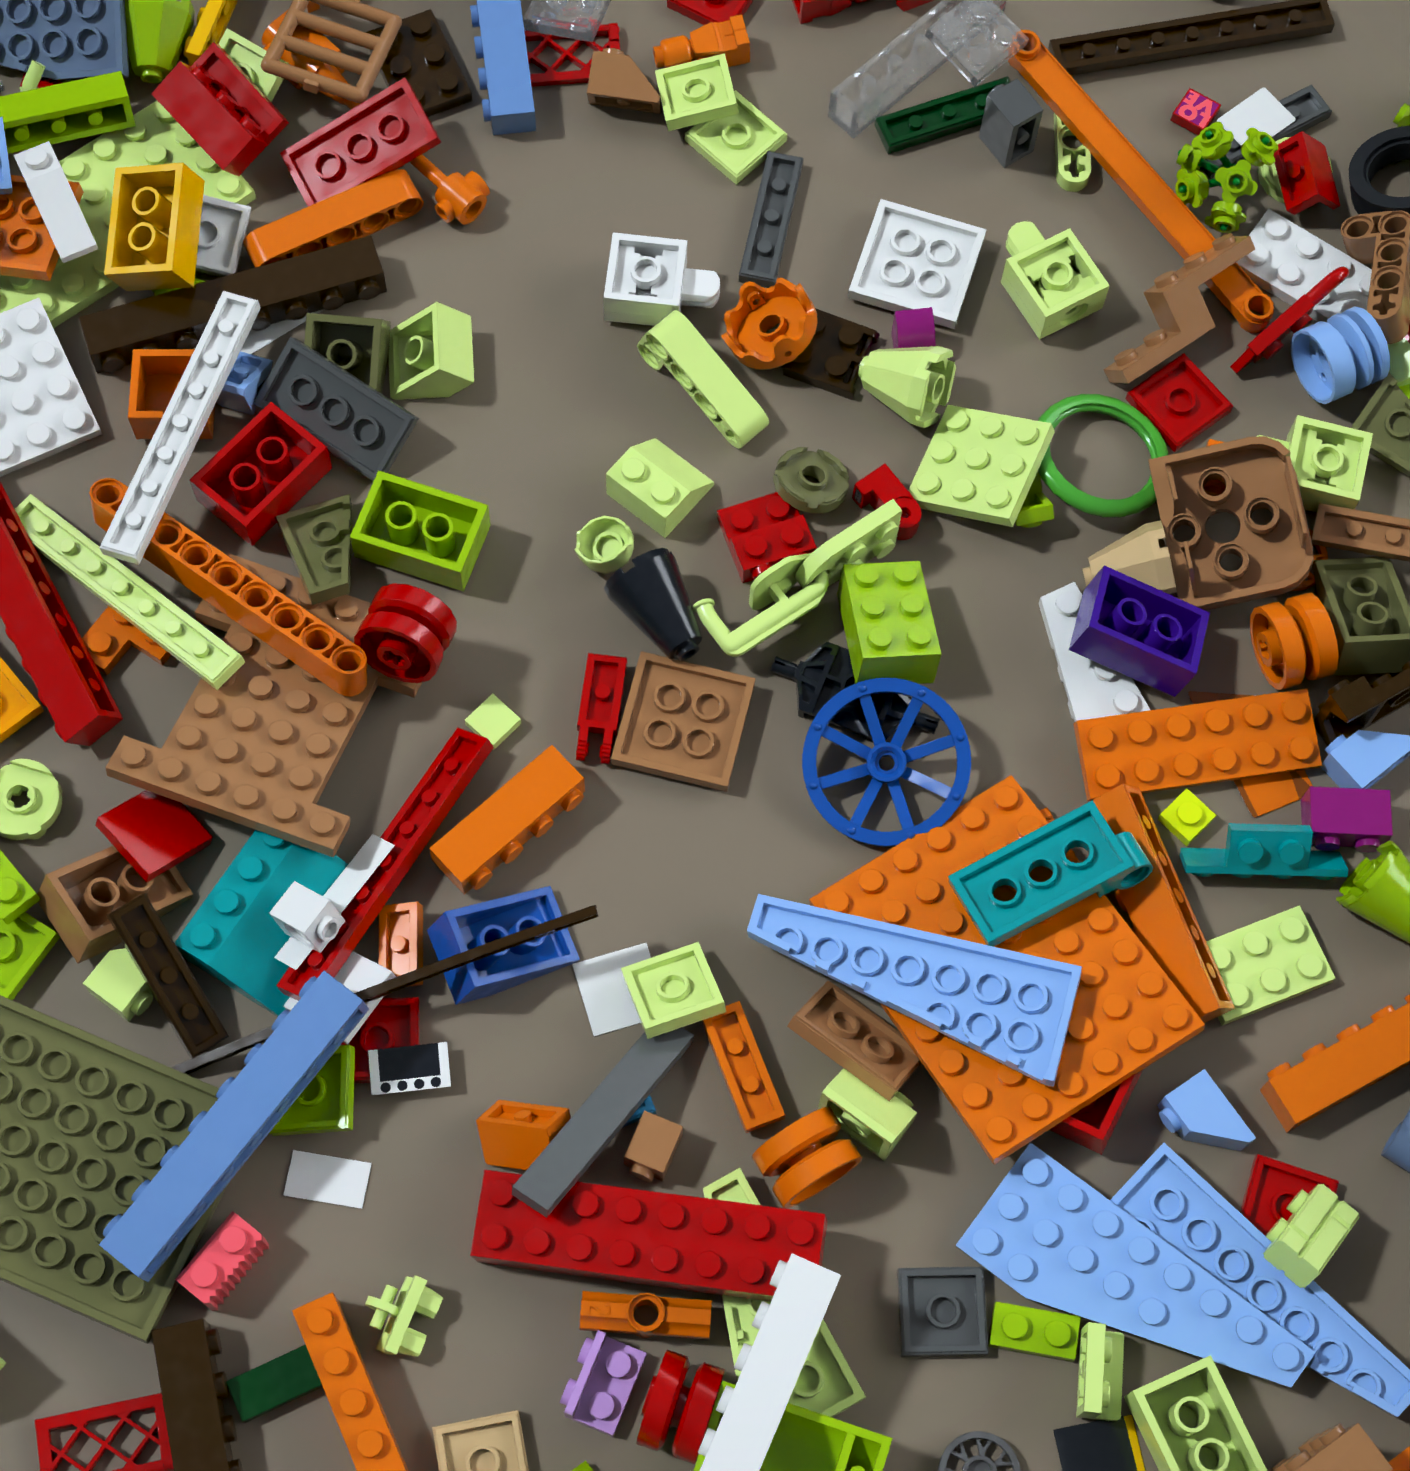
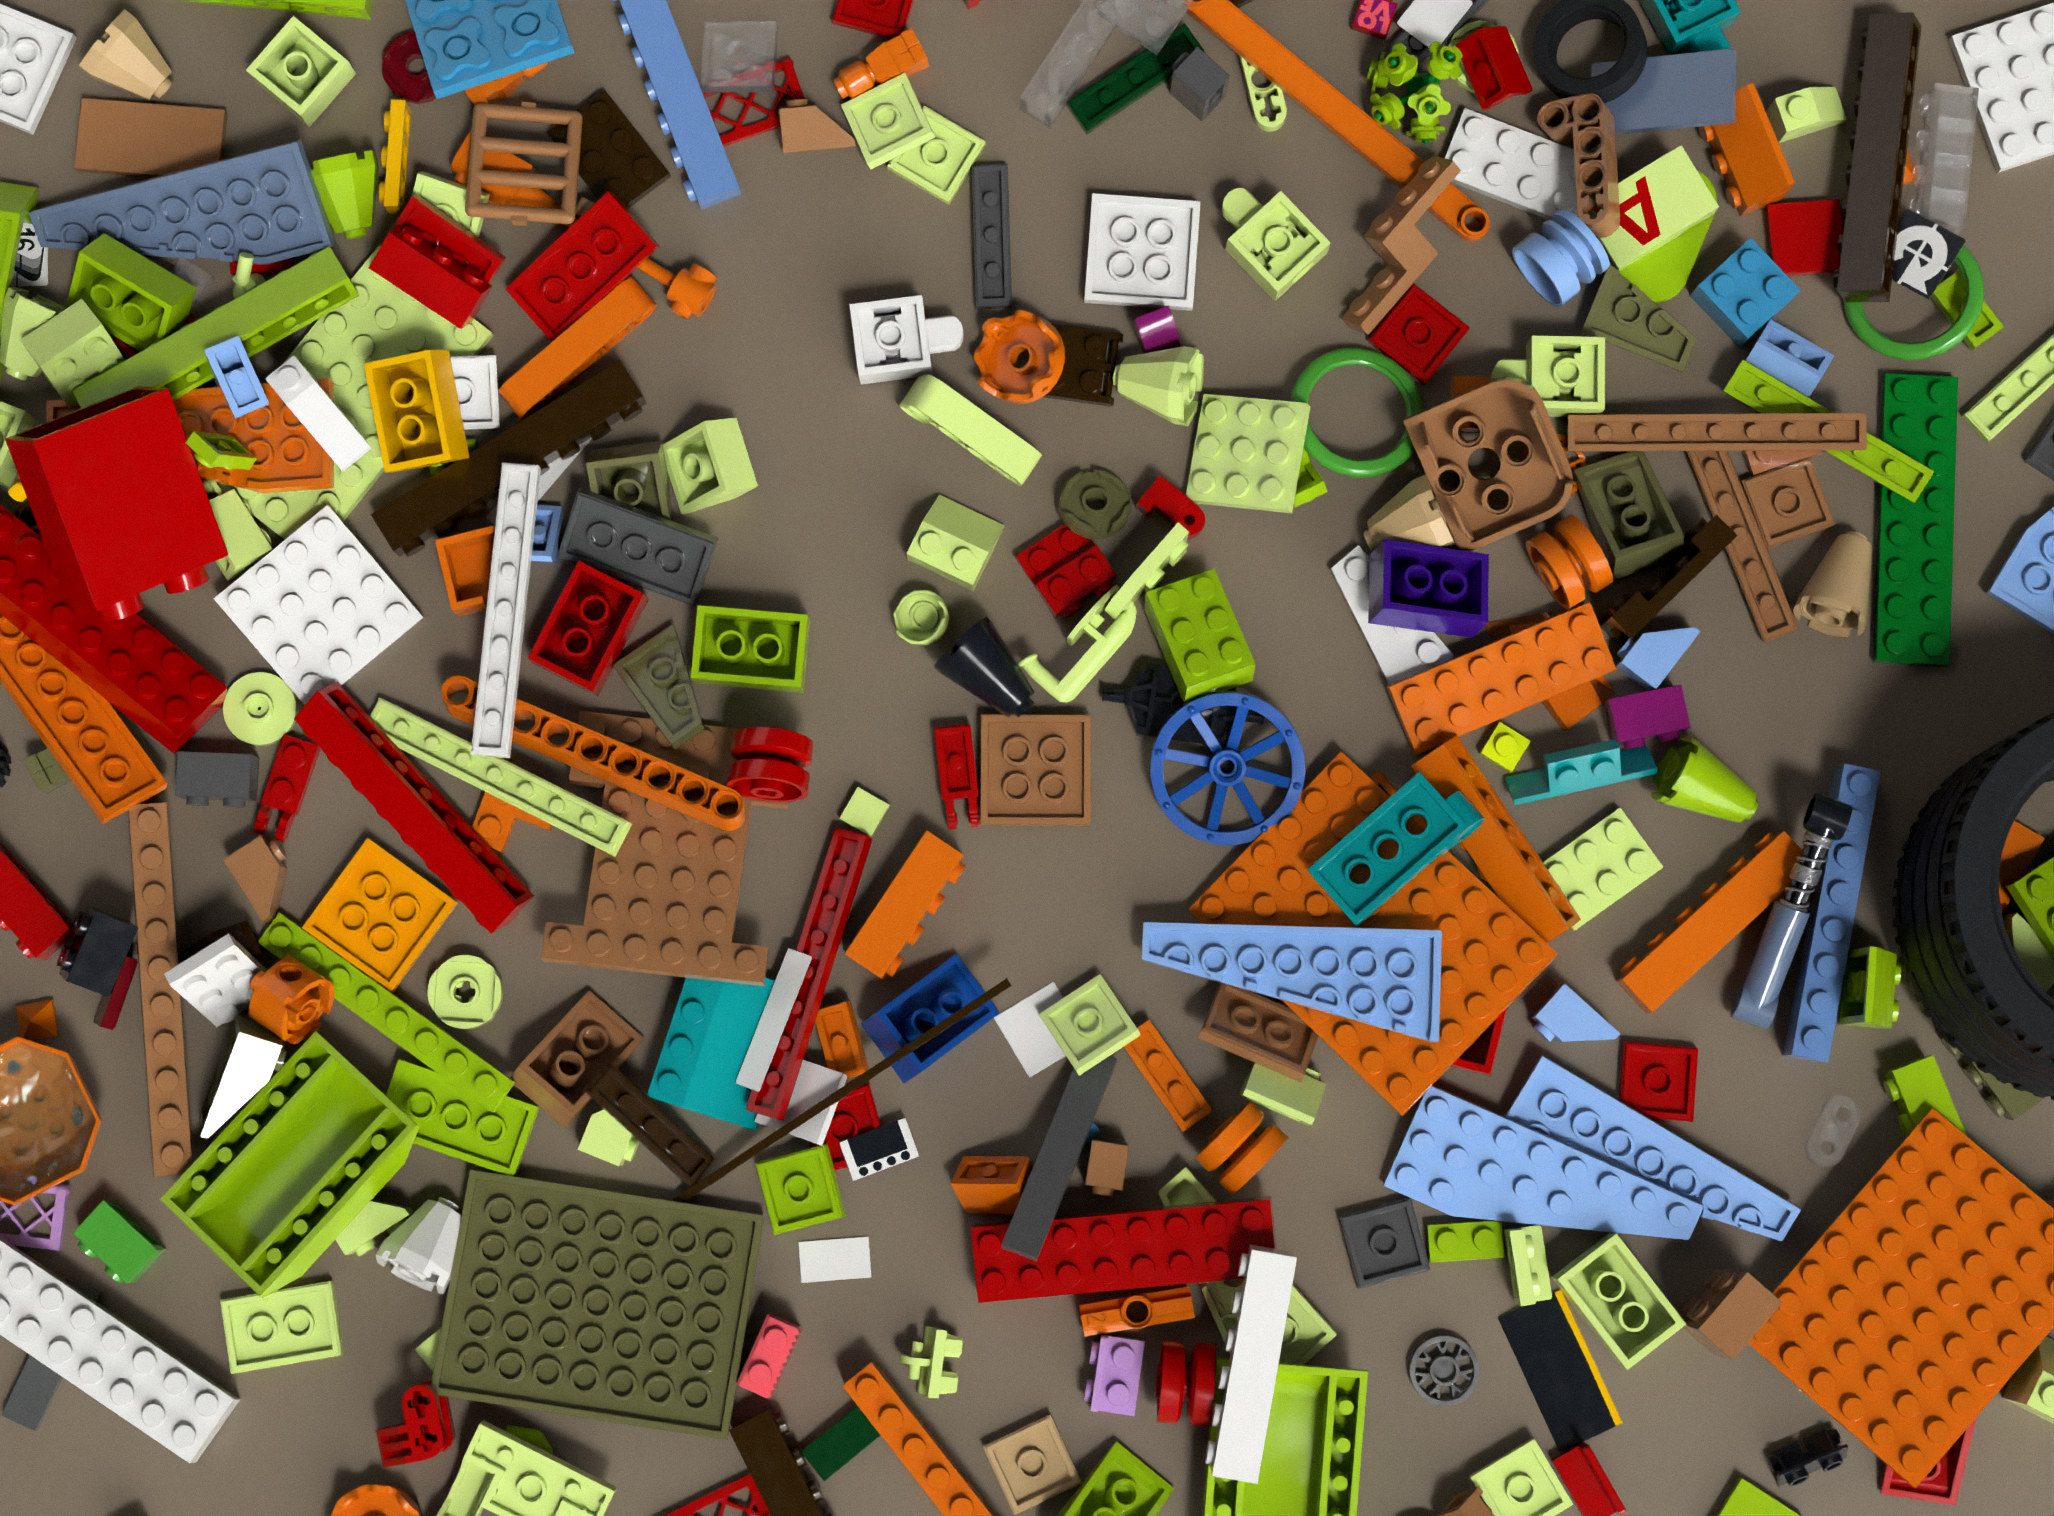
camera: 10 degrees left, 15 degrees up
(153, 833) = (594, 998): red tile -> none
(233, 1126) = (750, 1246): medium blue brick -> none
(307, 917) = (757, 1045): white brick -> none
(1293, 319) = (1510, 230): red plate -> none
(1310, 1234) = (1681, 1108): yellowish green brick -> none

